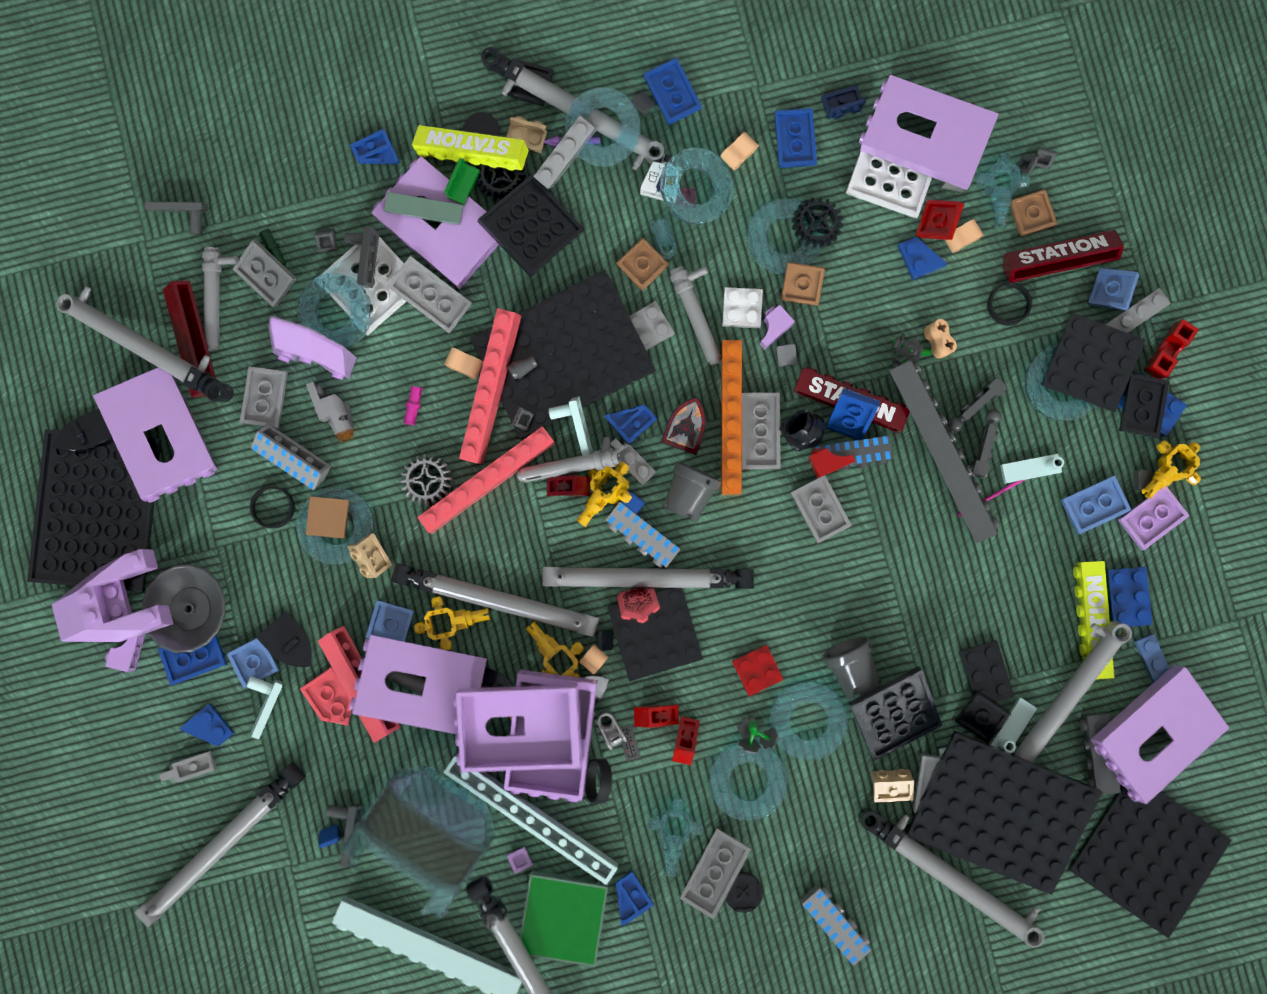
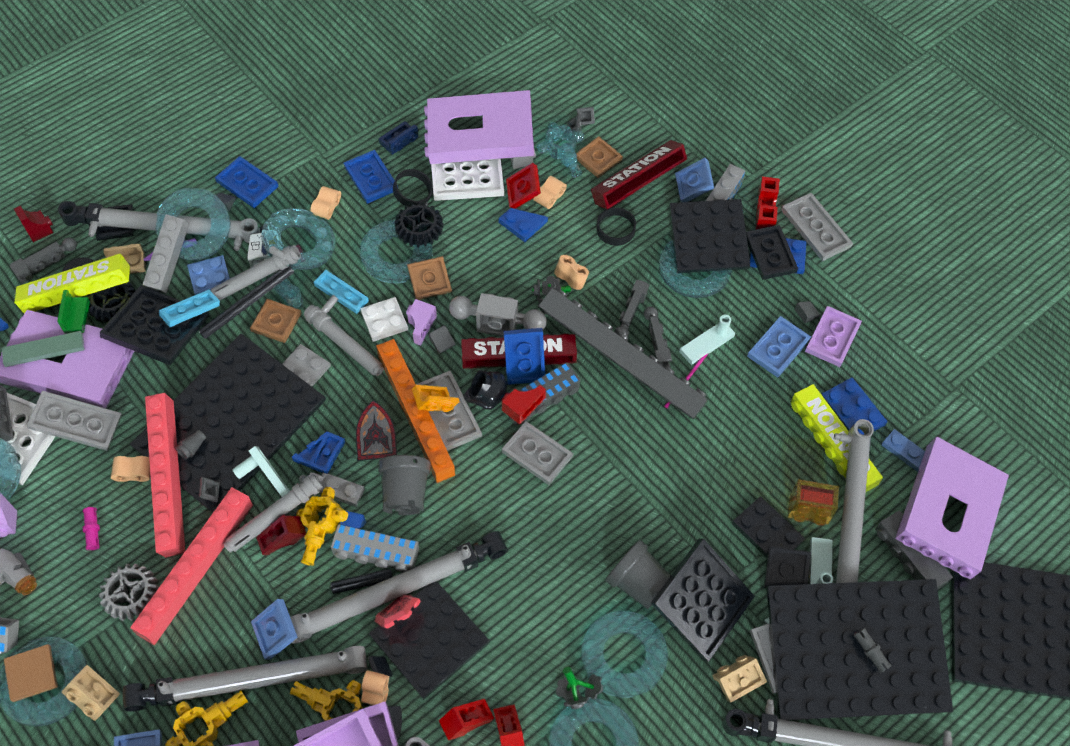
camera: 30 degrees left, 25 degrees down
(430, 104) = (37, 262): none -> dark grey plate
(455, 55) = (34, 223): none -> dark red arch
(532, 570) = (274, 629): none -> medium blue plate
(568, 221) = (189, 308): none -> medium azure plate
(599, 186) = (208, 273): none -> medium blue plate
(619, 557) = (360, 581): none -> black axle
(624, 234) = (245, 302): none -> black axle
(667, 211) = (279, 261): none -> light grey cylinder
(714, 260) = (345, 293): none -> medium azure plate
(751, 420) = (434, 398): none -> light orange bracket
(757, 670) = (549, 628): red plate -> none
(848, 172) = (417, 174): none -> black tyre
(848, 356) = (496, 314): none -> light grey brick
(1012, 824) = (872, 650): none -> dark grey pin
(1039, 671) = (813, 502): none -> clear yellow piece
(1167, 474) = (822, 295): yellow piece -> none
(1207, 393) = (816, 226): none -> light grey plate

